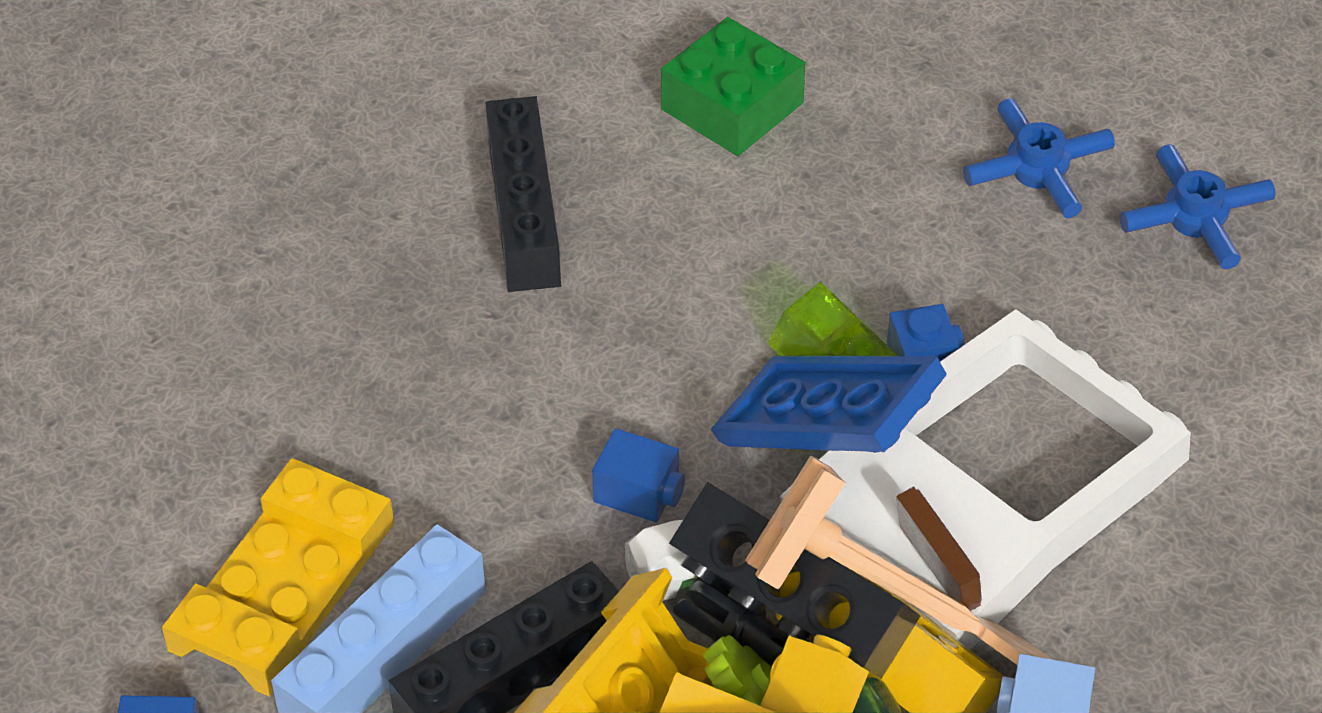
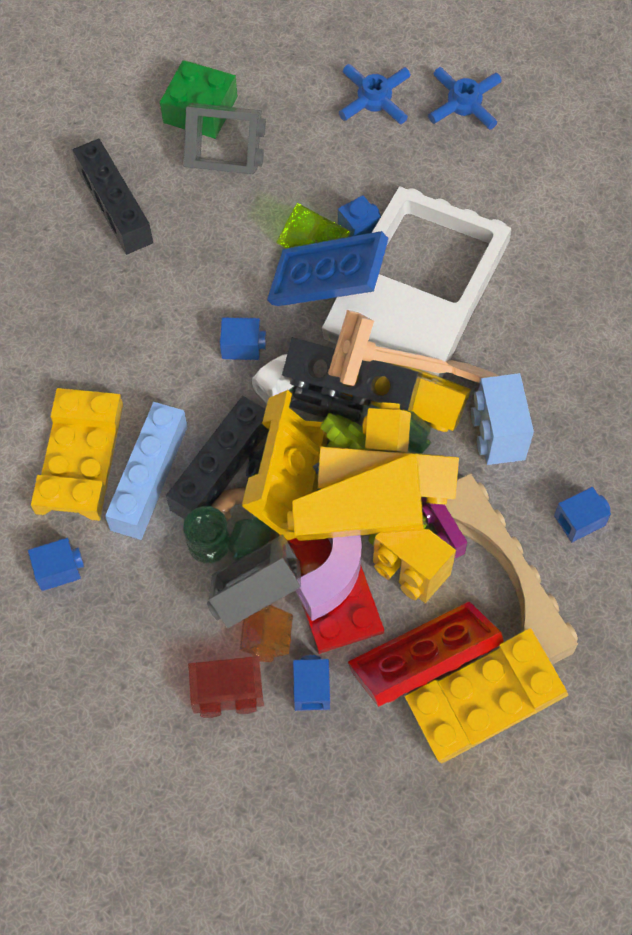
camera: 20 degrees left, 15 degrees up
(695, 138) = (193, 138): none -> dark grey window
(939, 548) = (417, 333): reddish brown tile -> none

